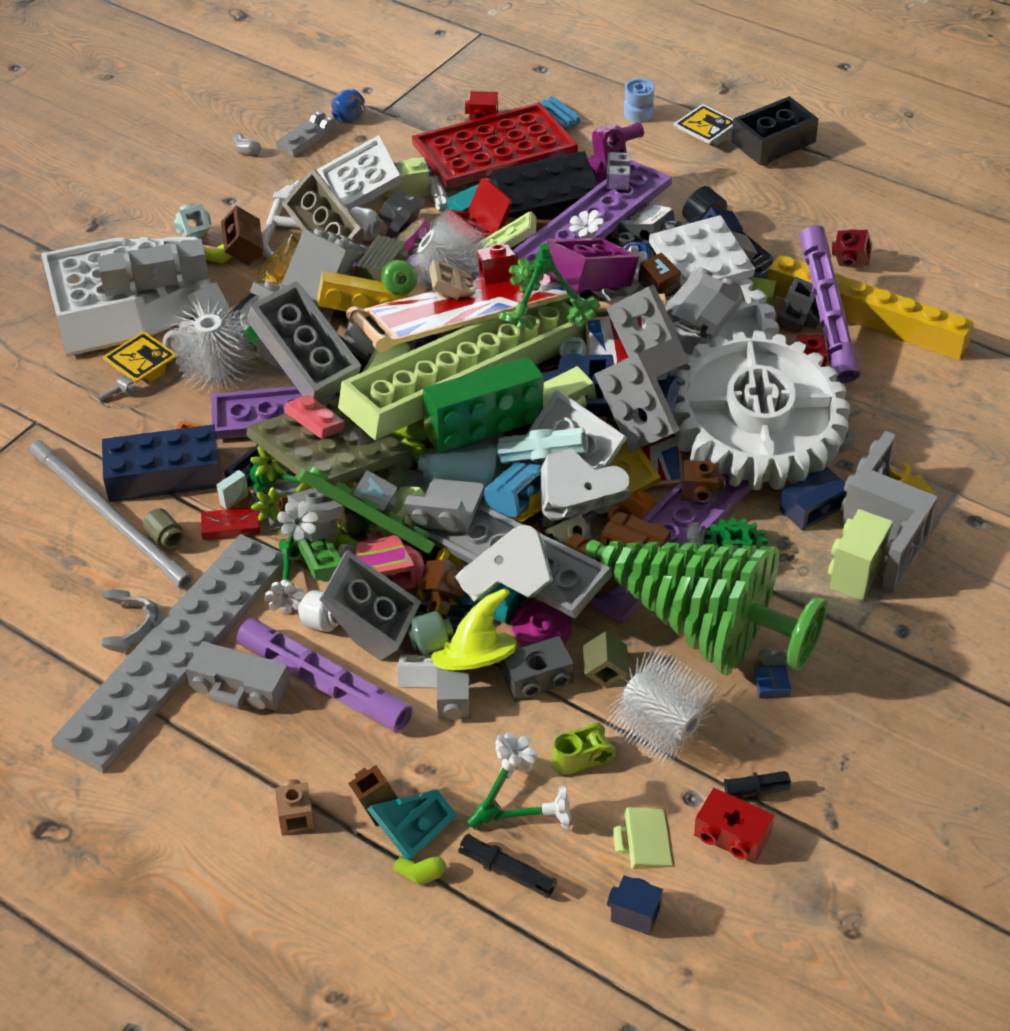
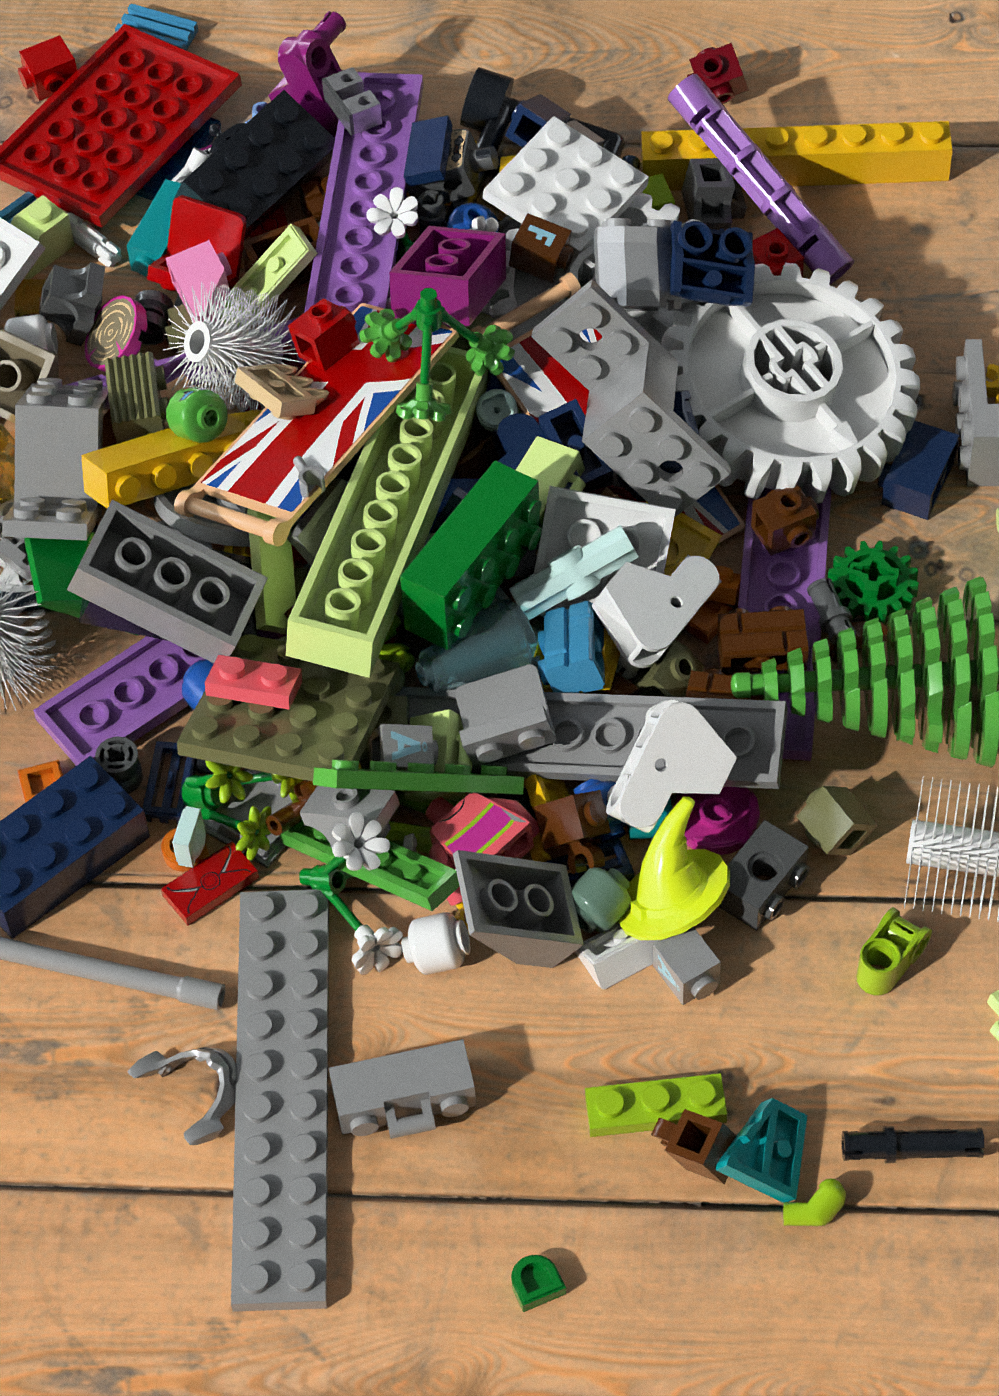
camera: 30 degrees left, 10 degrees up
(163, 528) = (132, 939): olive brick -> none
(225, 822) = (536, 1281): none -> green tile
(231, 441) = (121, 761): none -> dark grey wheel
(294, 802) = (614, 1228): medium nougat brick -> none
(325, 675) = (506, 1026): medium lavender piece -> none
(355, 754) = (641, 1104): none -> lime plate
(420, 322) = (308, 476): none -> light grey hand
(471, 213) = (197, 266): none -> bright pink slope
(517, 756) = (864, 1007): white plant -> none
(640, 210) = (428, 151): none -> dark blue tile
(744, 316) = (712, 264): none -> dark blue slope

